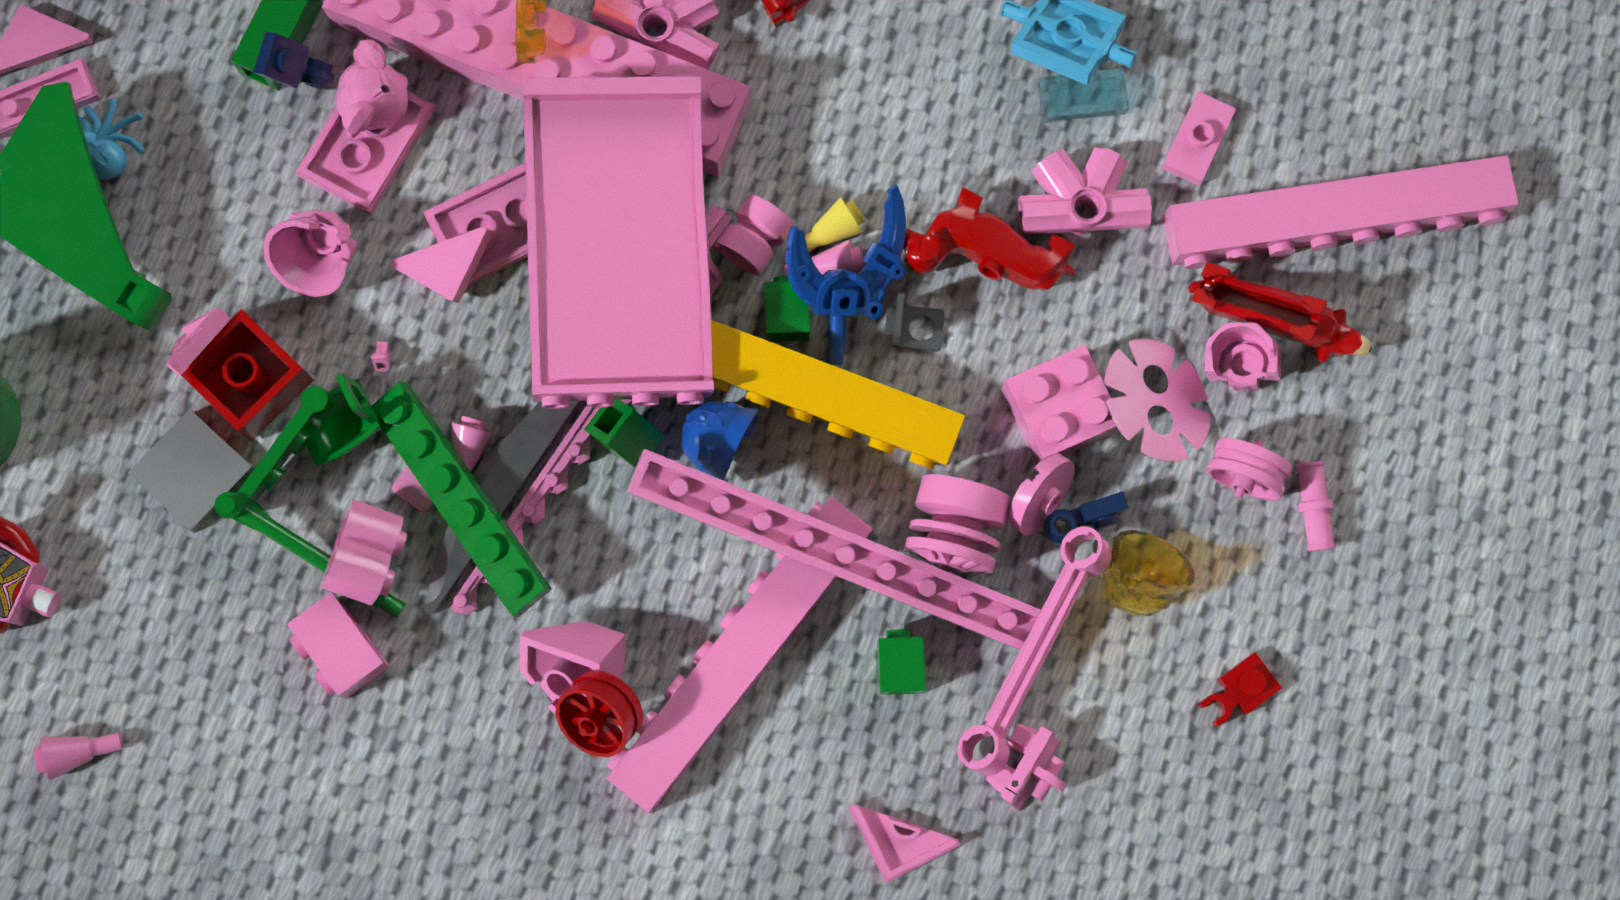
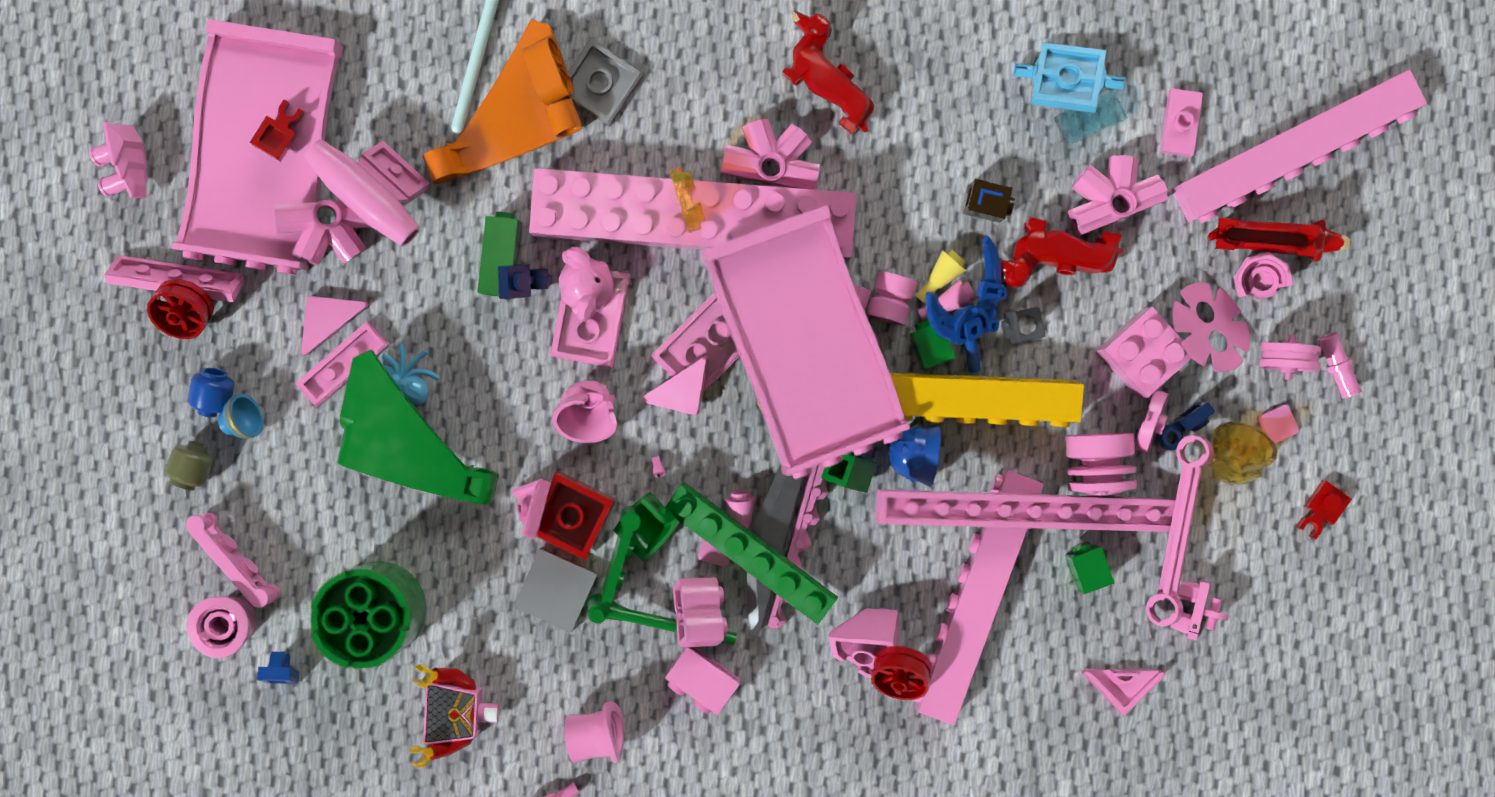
camera: 20 degrees left, 10 degrees up
(170, 671) = (595, 734): none -> bright pink piece
(919, 155) = (989, 201): none -> dark brown brick
(1214, 559) = (1278, 423): none -> bright pink piece

